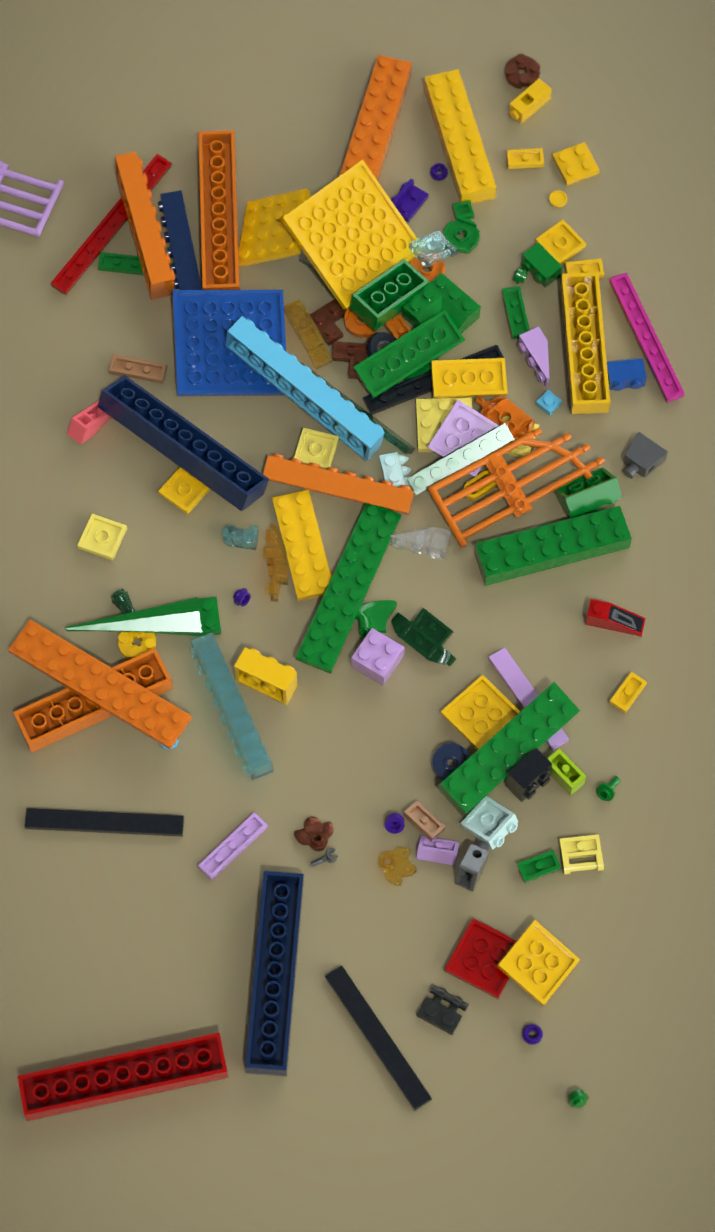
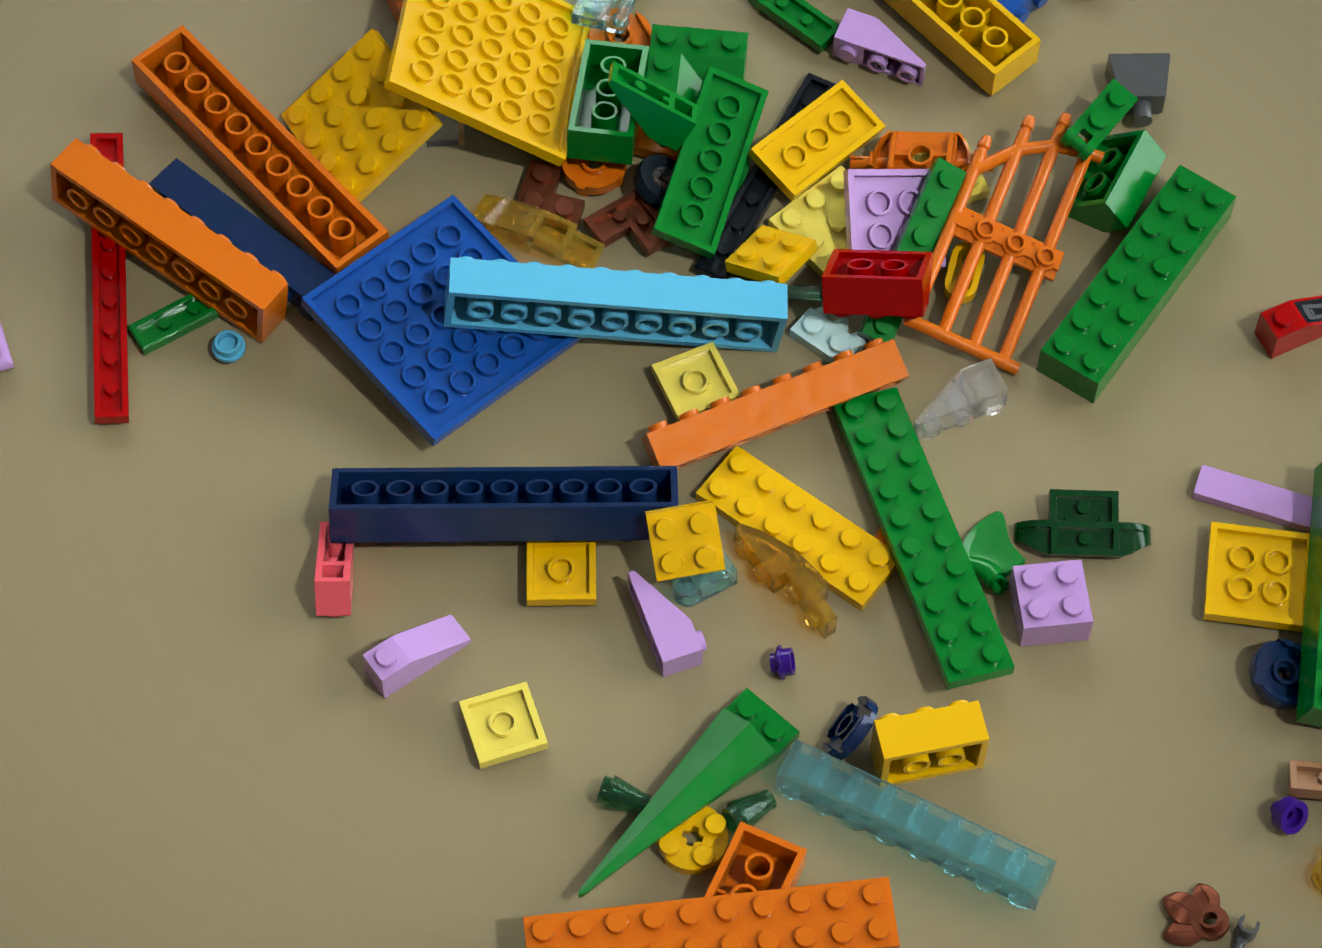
camera: 40 degrees left, 5 degrees down
(93, 479) = (413, 653): none -> lavender slope
(134, 291) = (228, 346): none -> medium azure plate
(138, 369) = (335, 450): medium nougat plate -> none
(169, 648) = (748, 809): none -> clear green cone
(203, 550) = (667, 628): none -> lavender slope
(239, 513) = (685, 540): none -> yellow plate
(239, 645) = (851, 728): none -> dark blue plate
(397, 309) = (657, 110): none -> green slope
(399, 416) = (771, 255): none -> yellow plate
(427, 460) = (877, 283): none -> red slope
(548, 402) = (947, 102): medium azure plate -> none
(600, 458) = (1099, 119): none -> green plate

